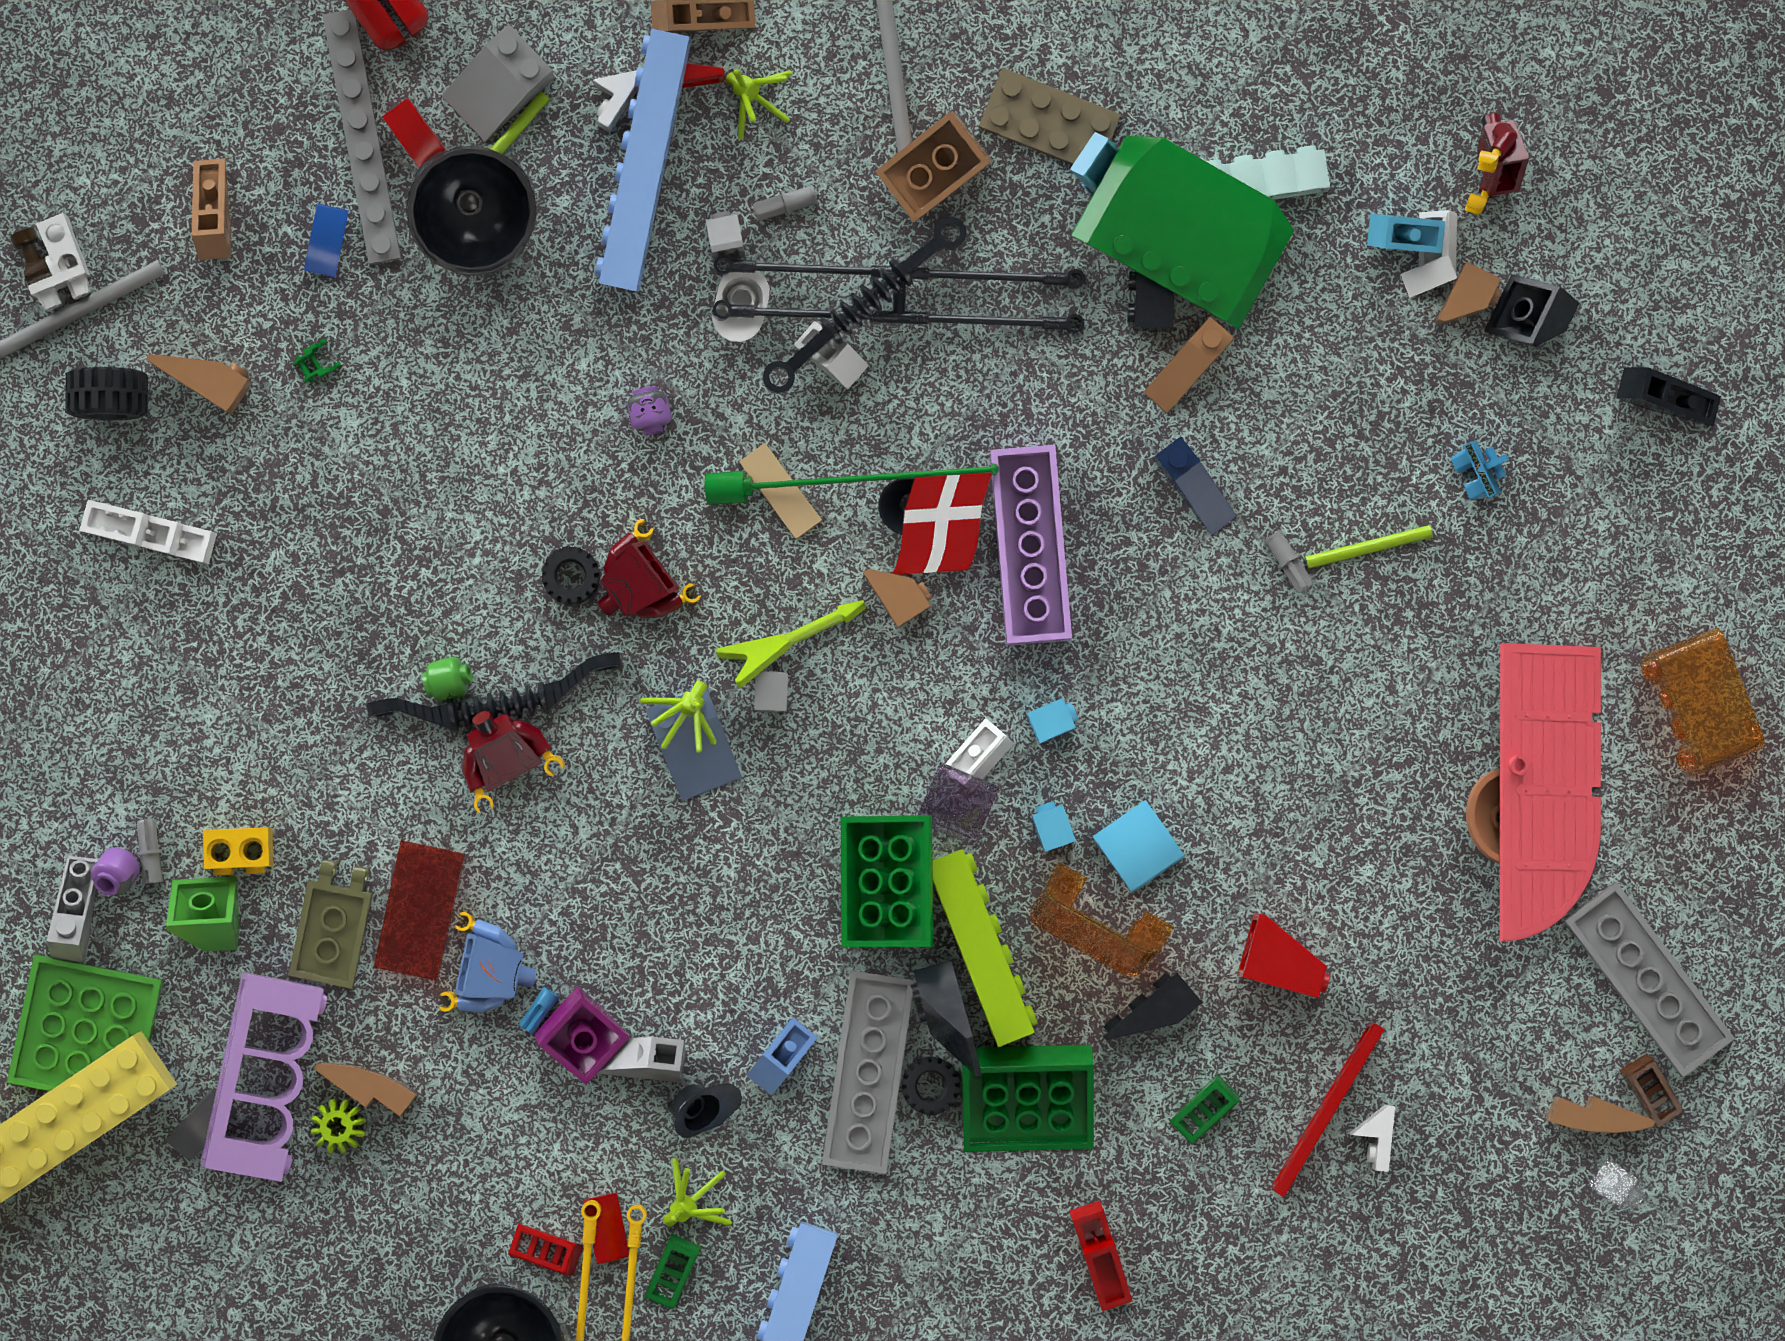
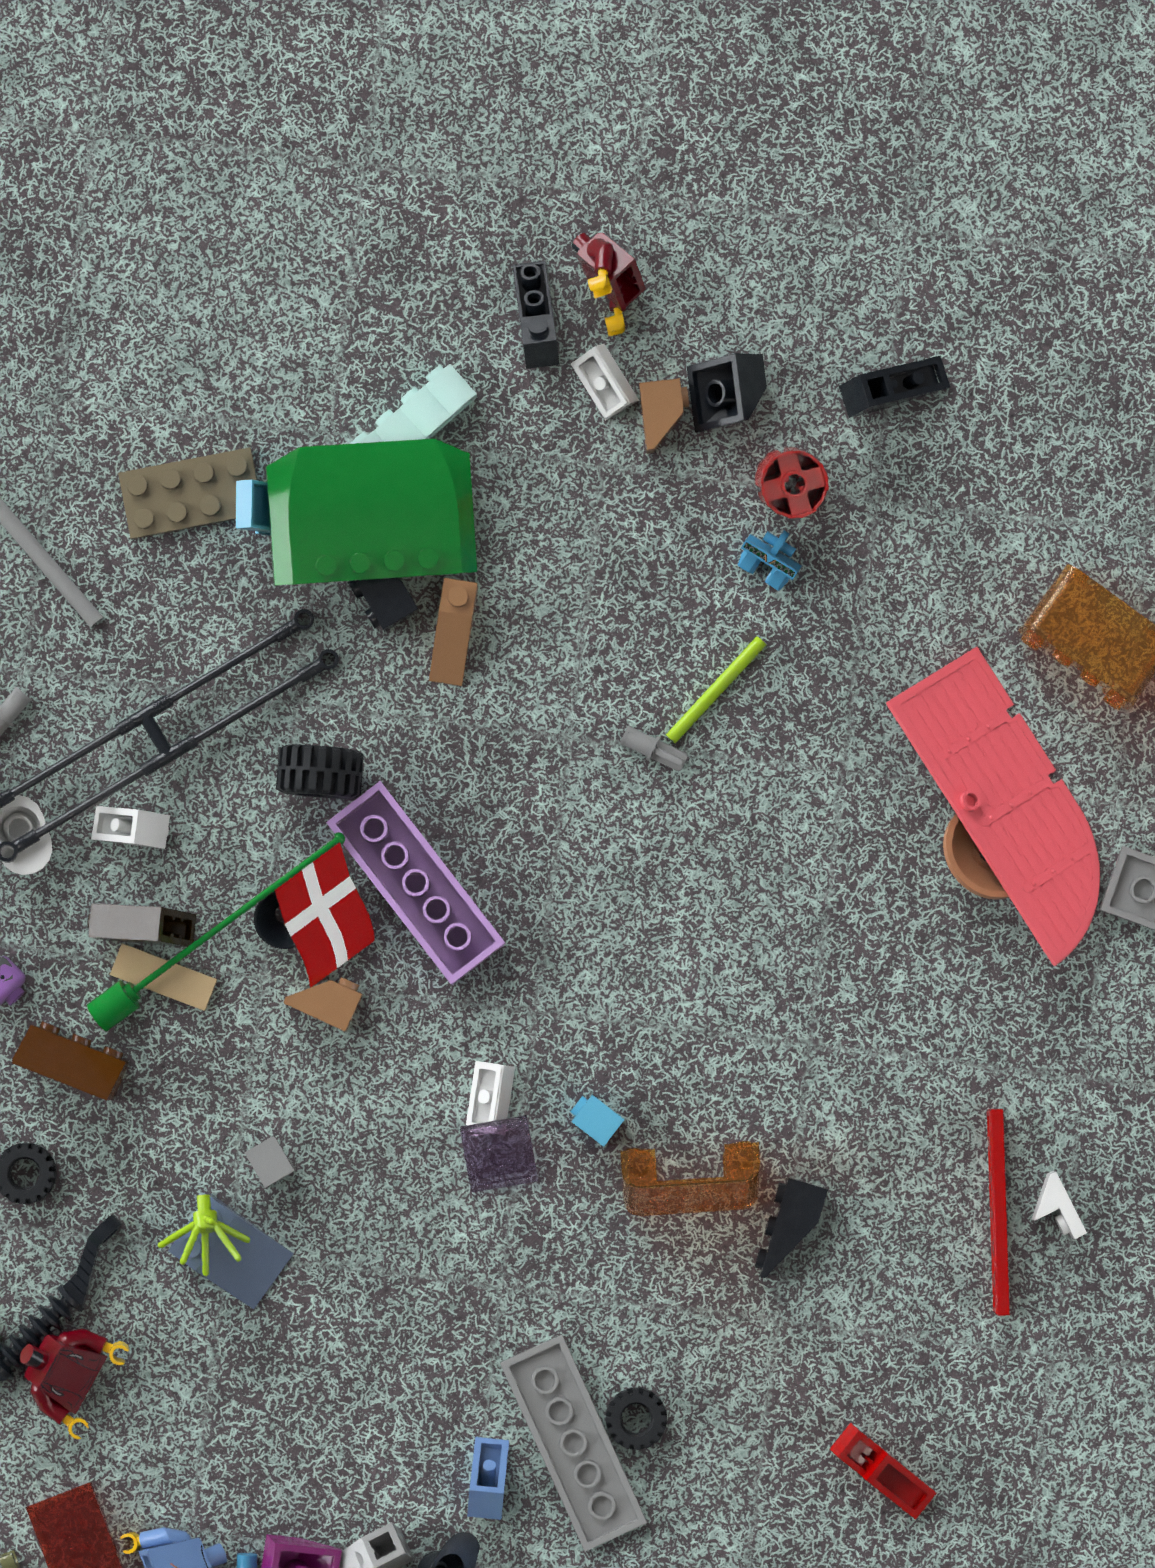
camera: 30 degrees left, 0 degrees up
(638, 580) = (88, 1139): dark red torso -> none
(665, 509) = (71, 1061): none -> reddish brown slope
(764, 651) = (242, 1127): lime piece -> none
(790, 437) = (141, 925): none -> slope
(851, 314) = (128, 768): black piece -> none
(886, 881) = (480, 1265): green slope -> none
(934, 166) = (113, 600): medium nougat slope -> none
(945, 1012) = (603, 1344): black slope -> none
(980, 948) = (601, 1269): lime brick -> none
(1011, 406) = (319, 771): none -> black tyre
(1029, 1097) = (728, 1373): green slope -> none
(1052, 720) = (535, 1024): medium azure brick -> none
(1138, 846) = (683, 1087): medium azure slope -> none
(1194, 485) = (527, 735): dark blue slope -> none
(1221, 1085) = (899, 1253): green slope -> none
(1280, 960) = (873, 1109): red slope -> none
(1406, 233) = (570, 391): medium azure slope -> none
(1417, 155) = (536, 314): none -> black slope
(1429, 276) = (614, 415): white sticker -> none
(1529, 402) = (775, 472): none -> red cylinder

